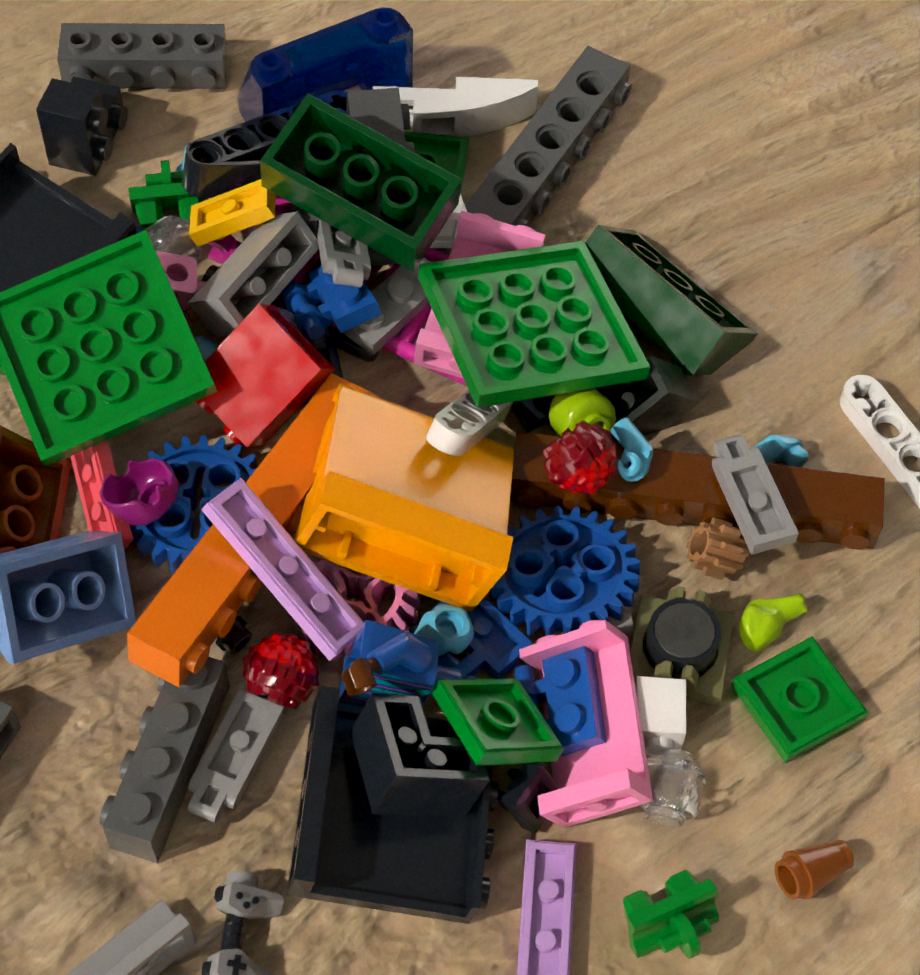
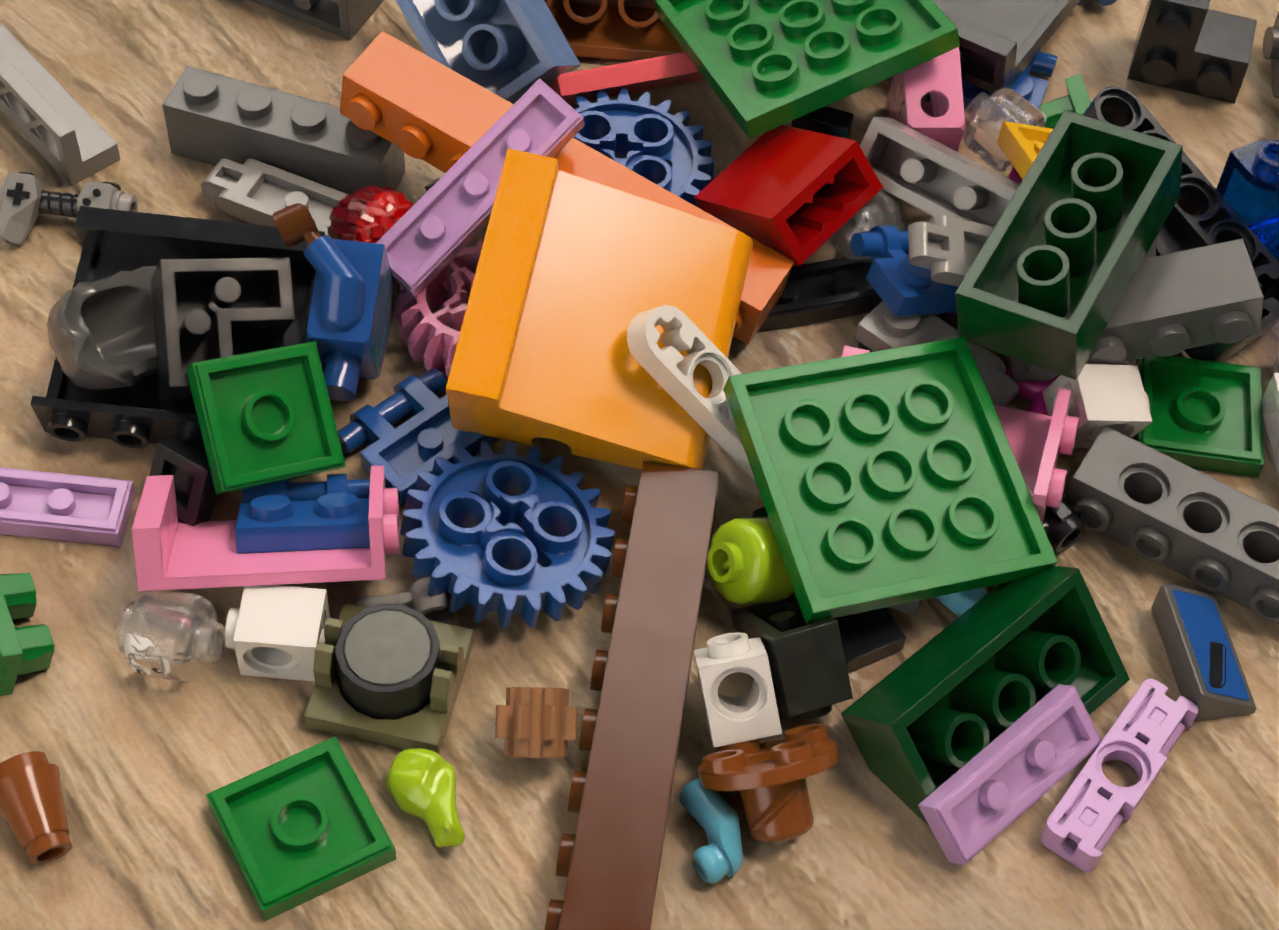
camera: 90 degrees right, 5 degrees down
(141, 493) = (606, 80): magenta hair -> none
(414, 851) = (106, 331): none -> dark grey hair
(447, 626) = (411, 382): medium azure animal -> none
(581, 458) = (647, 514): dark red piece -> none
(615, 191) = (1201, 652): none -> slope
(636, 453) = (675, 604): medium azure arm -> none
(687, 425) = (741, 717): none -> white brick
(718, 291) = (1010, 774): none -> lavender tile
(727, 257) = (1094, 805): none -> lavender piece
(740, 403) = (772, 779): none -> dark orange plate
(752, 495) = (599, 741): light grey hinge -> none

